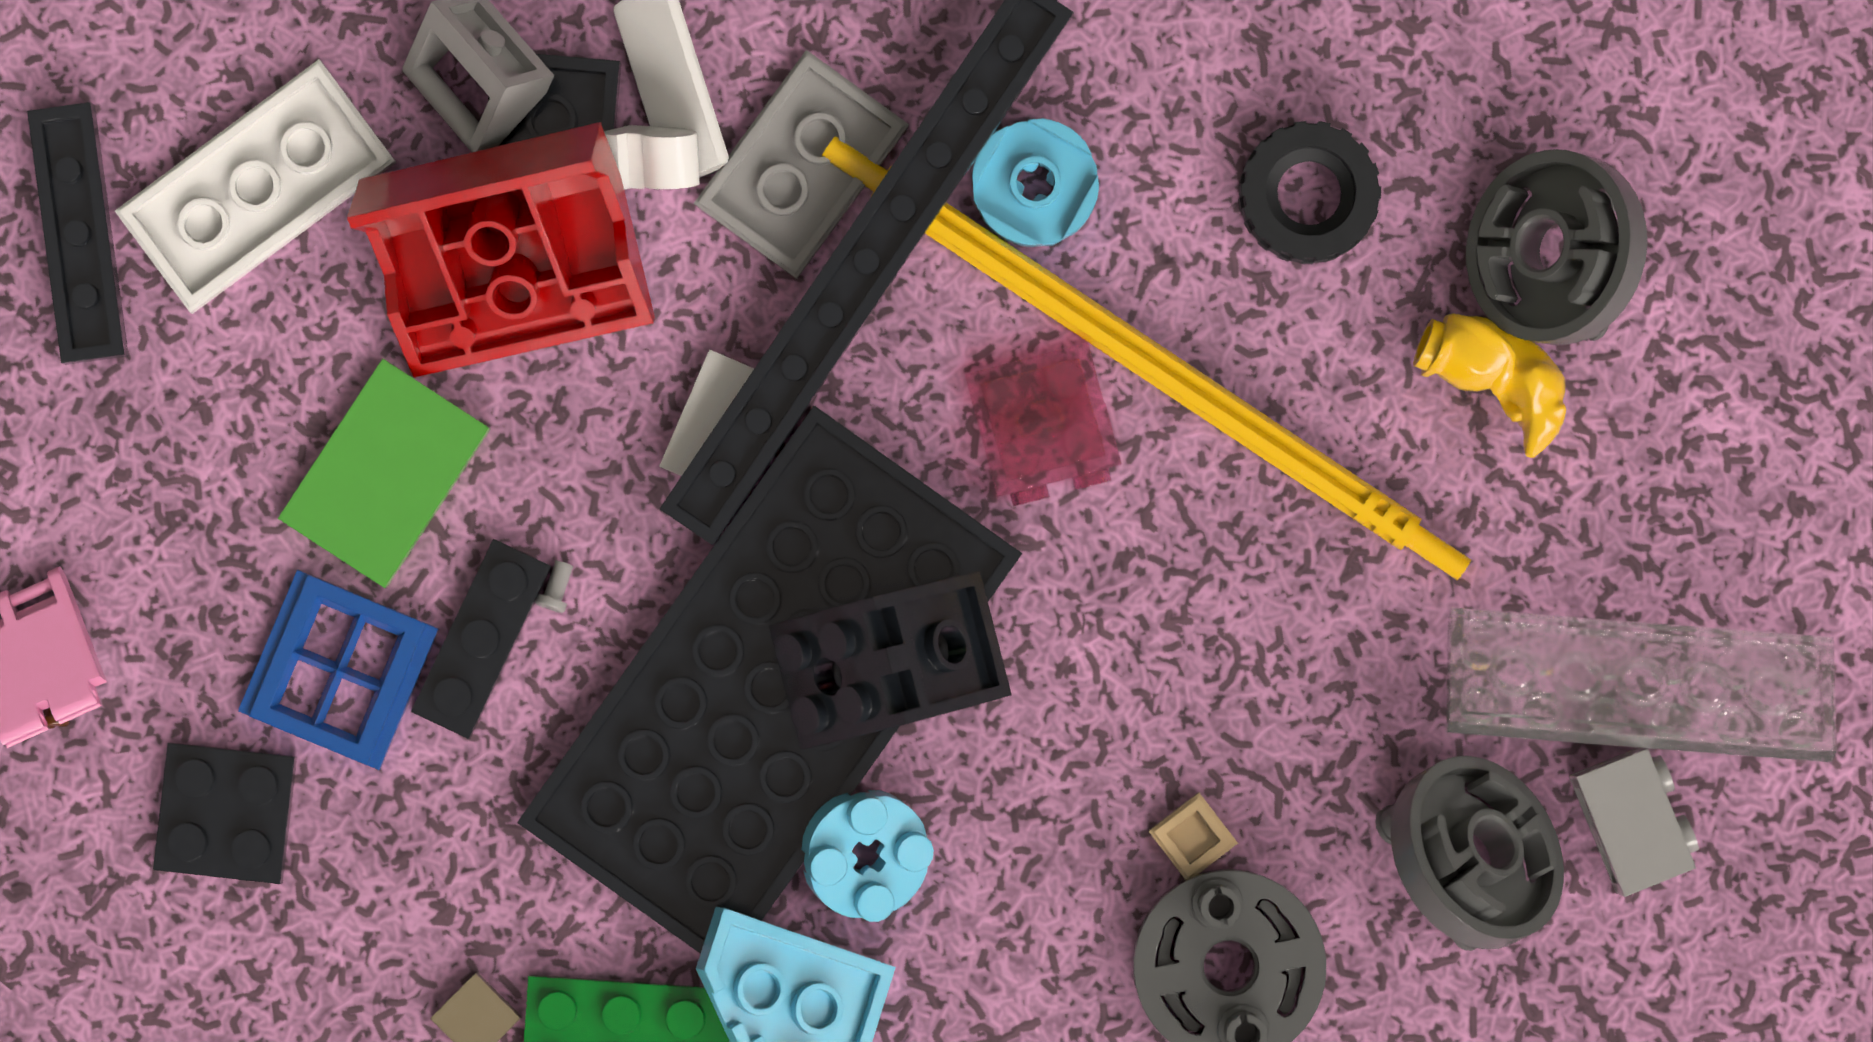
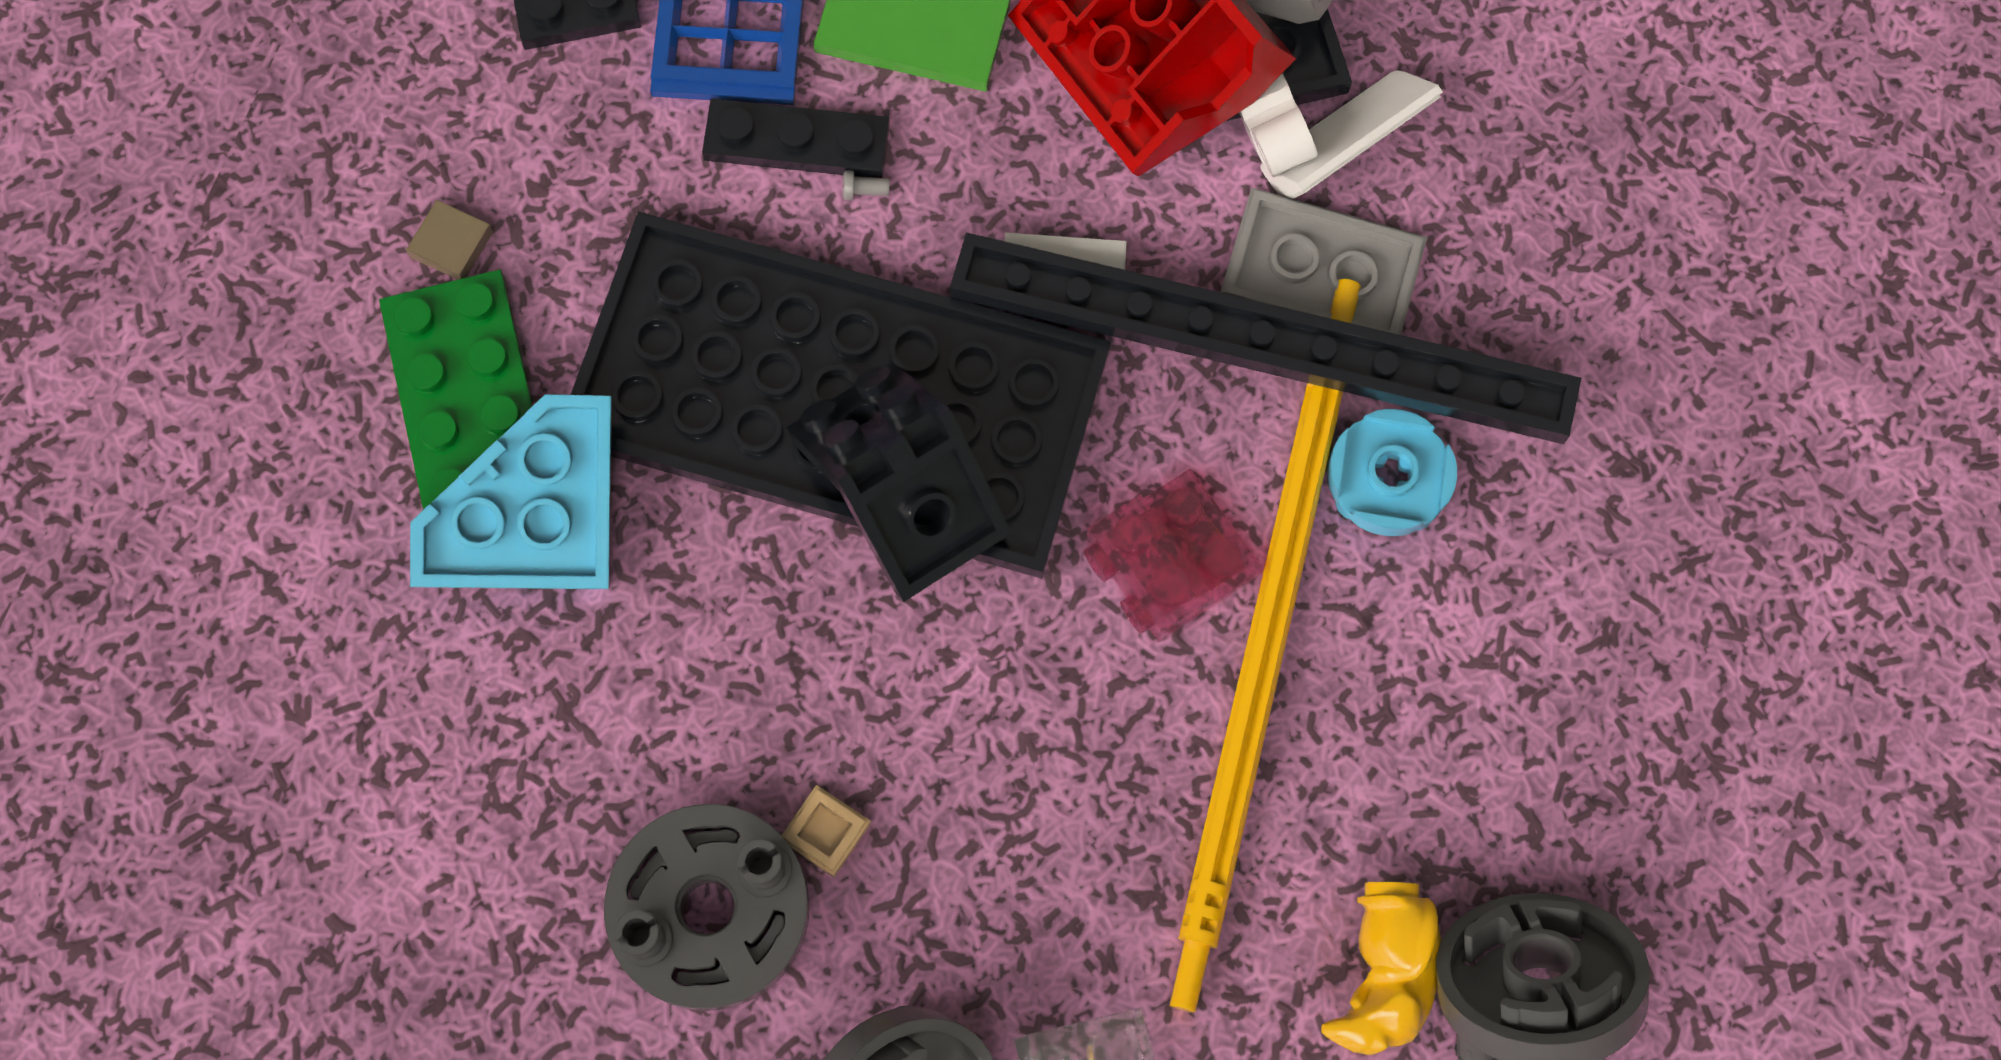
camera: 70 degrees right, 15 degrees down
(873, 889) = (673, 539): medium azure plate -> none
(1321, 145) = (1523, 692): black tyre -> none

